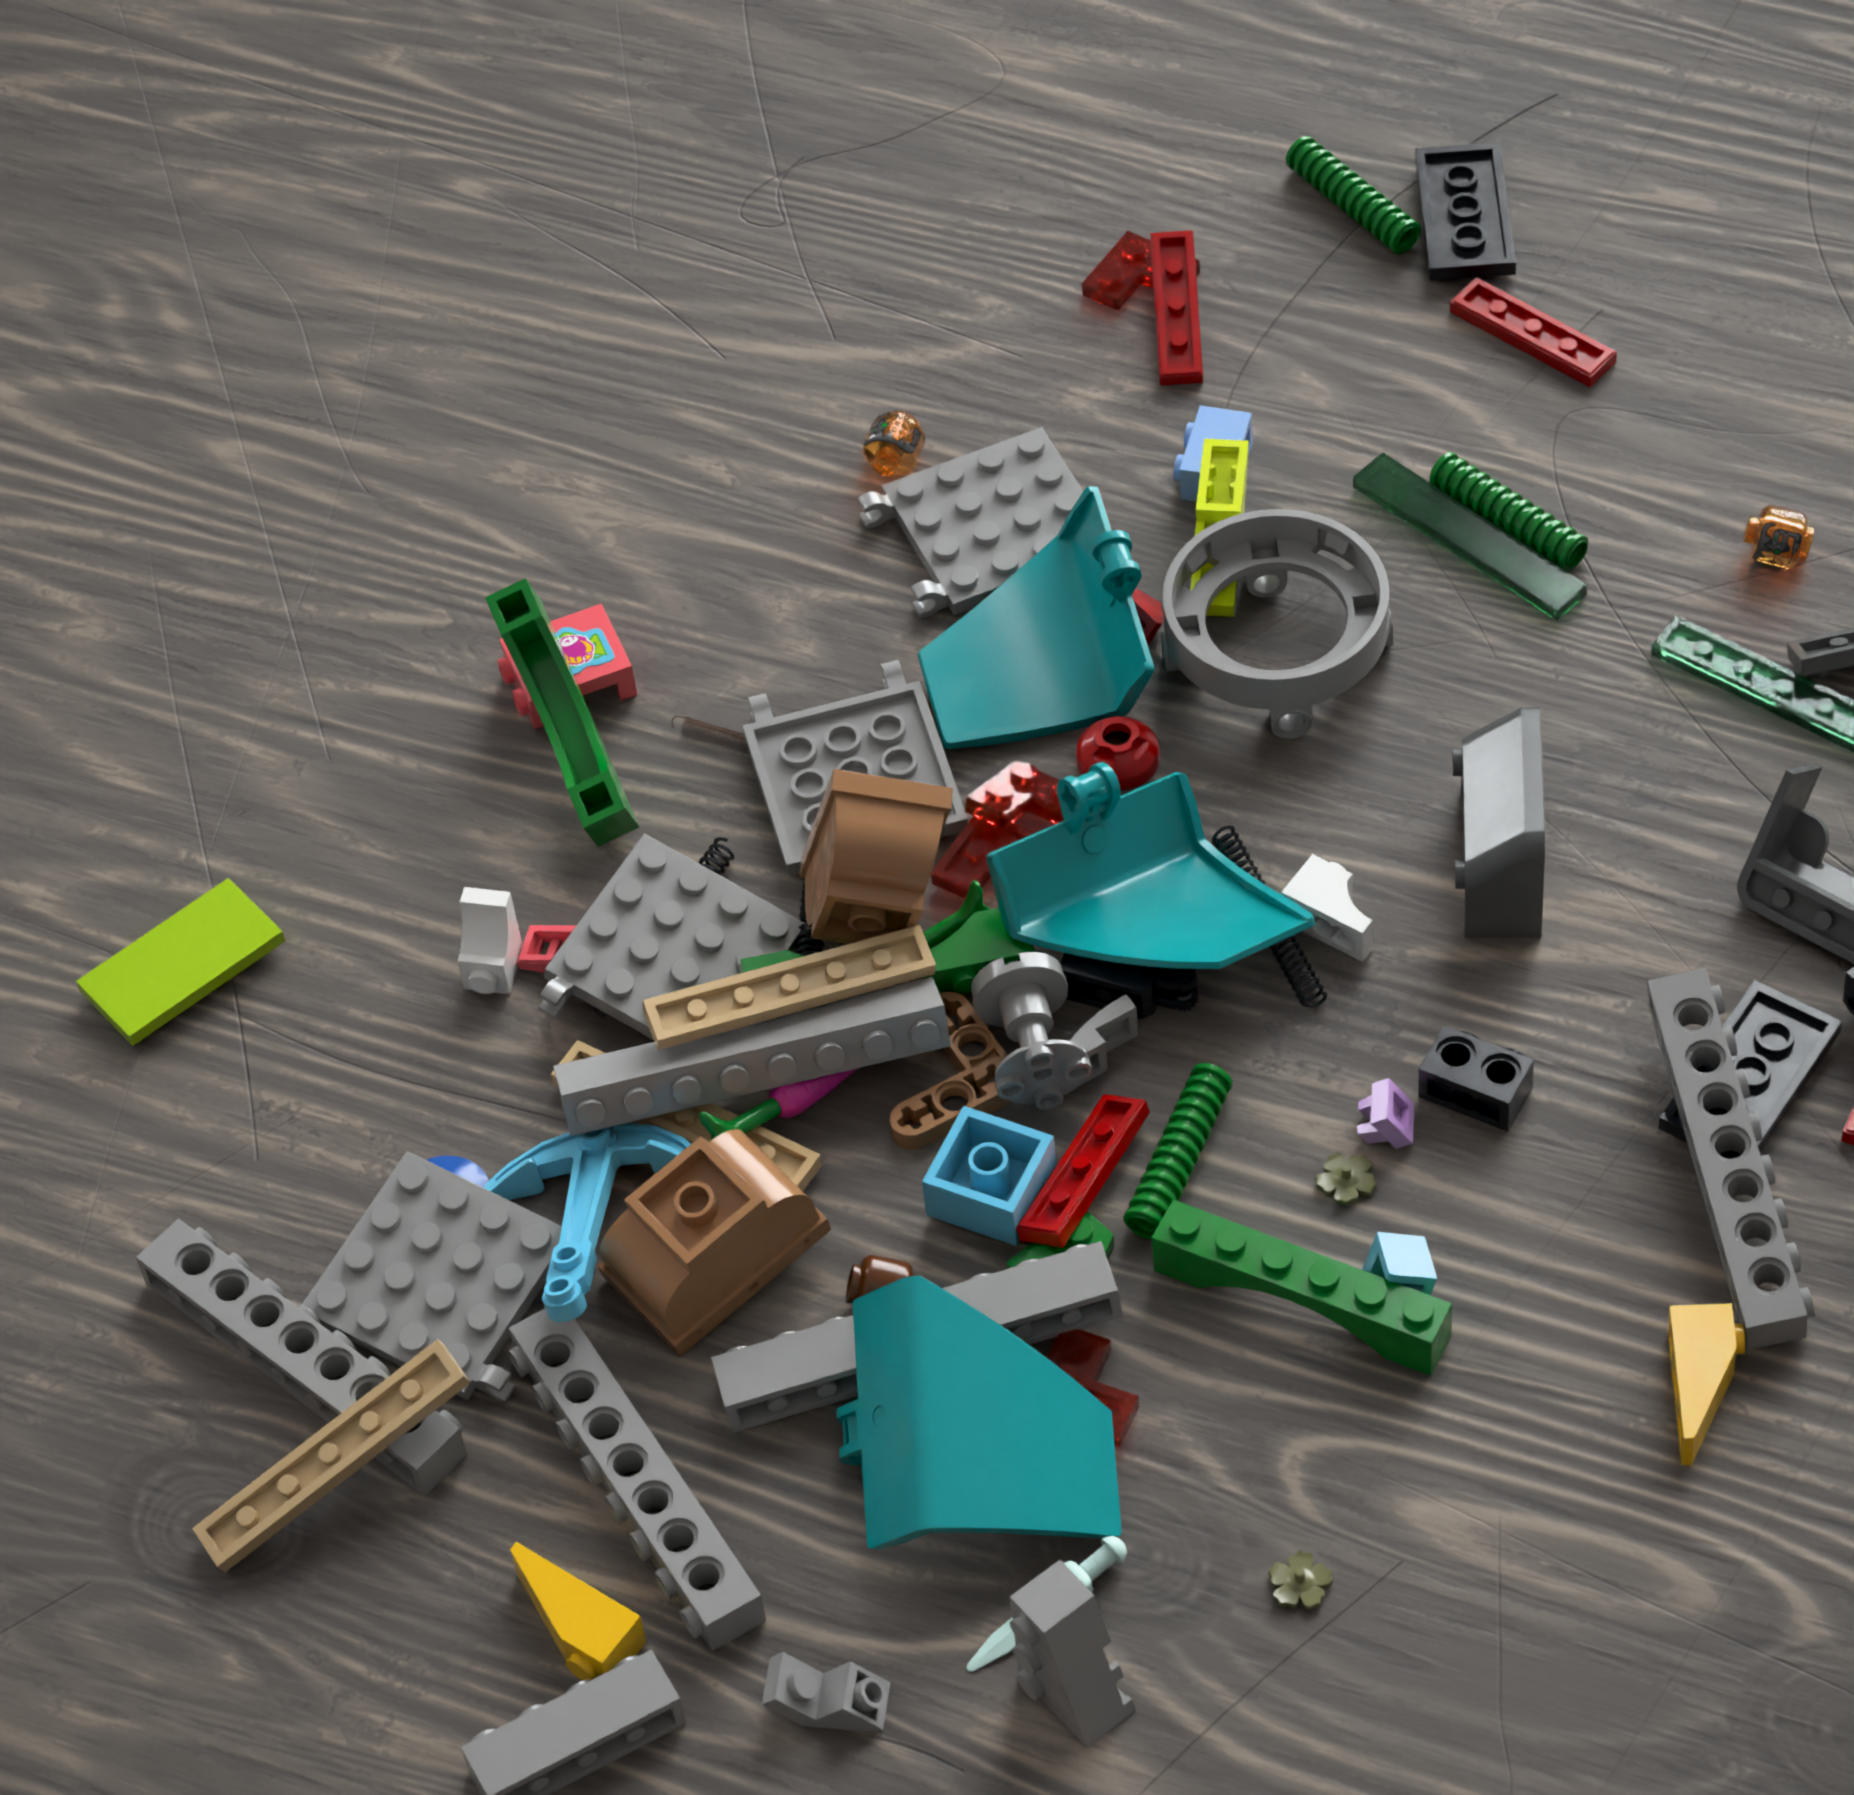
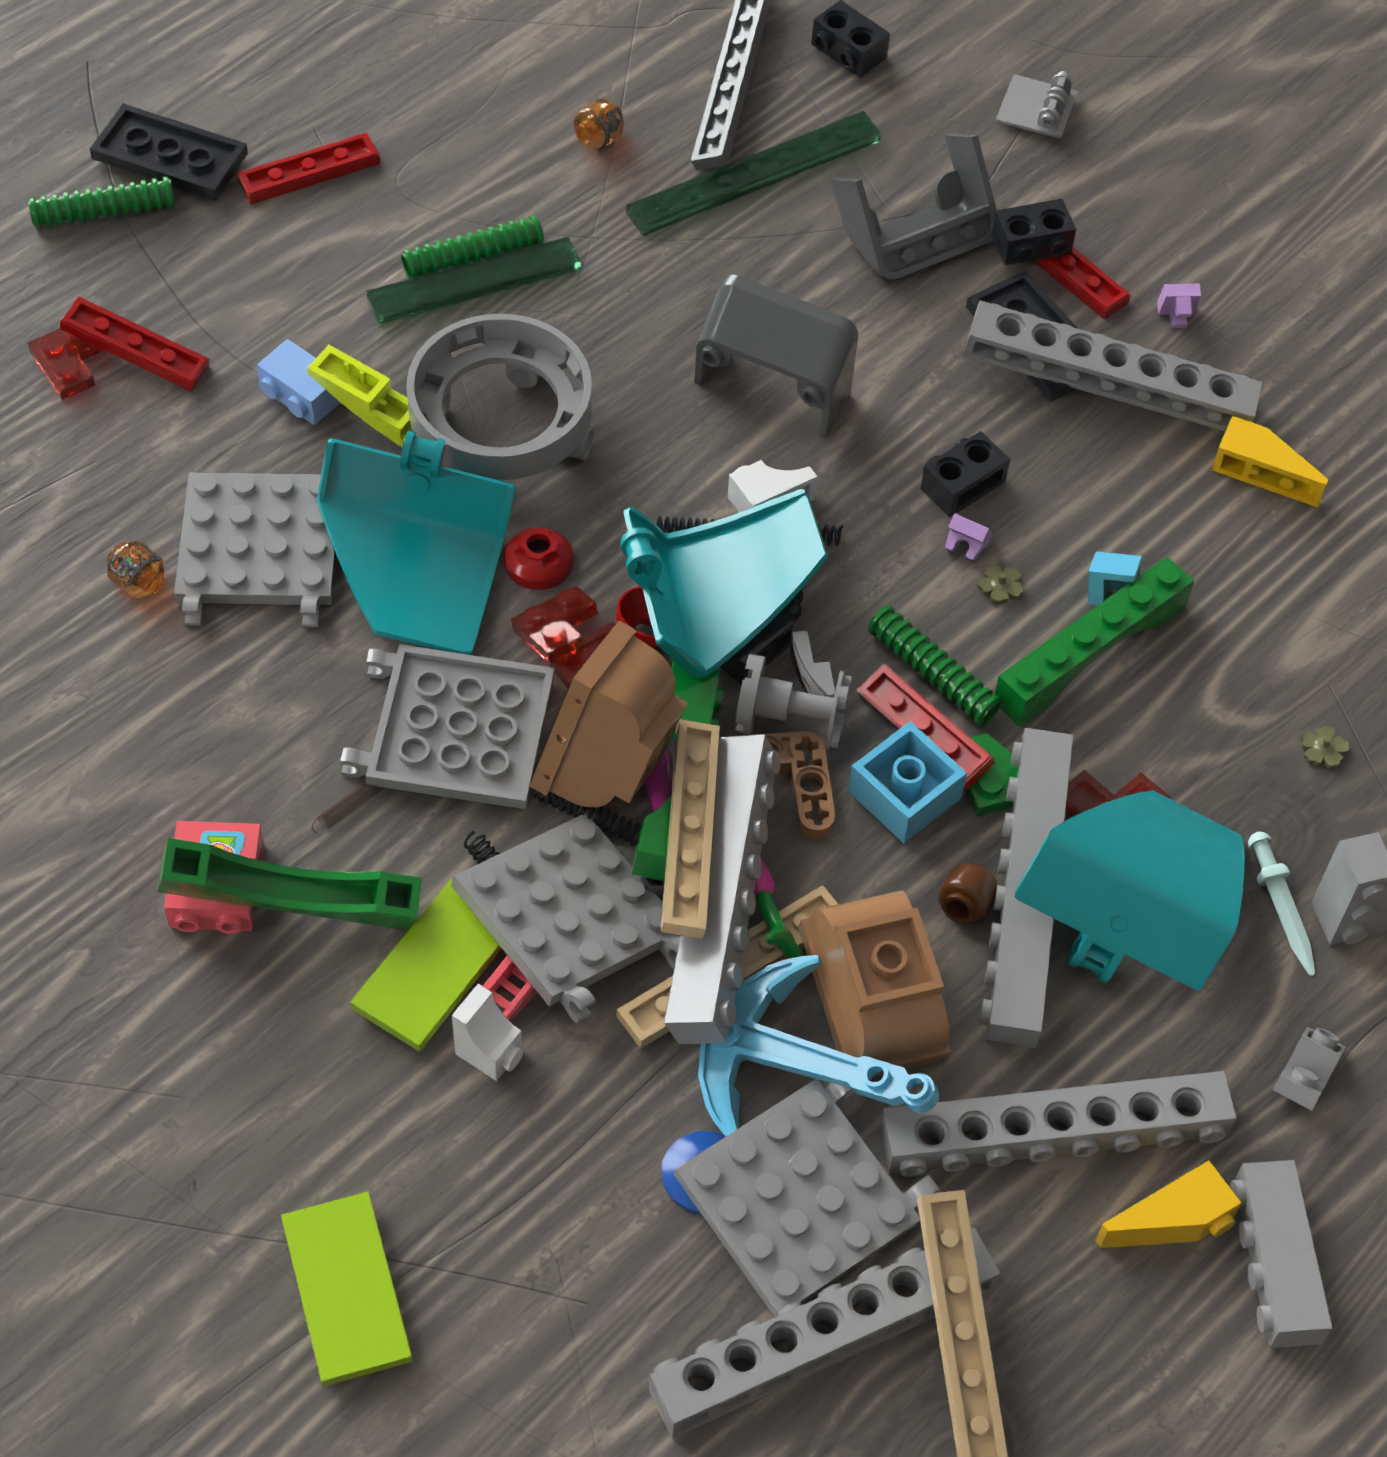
camera: 75 degrees left, 5 degrees up
(544, 872) = (428, 971): none -> lime tile

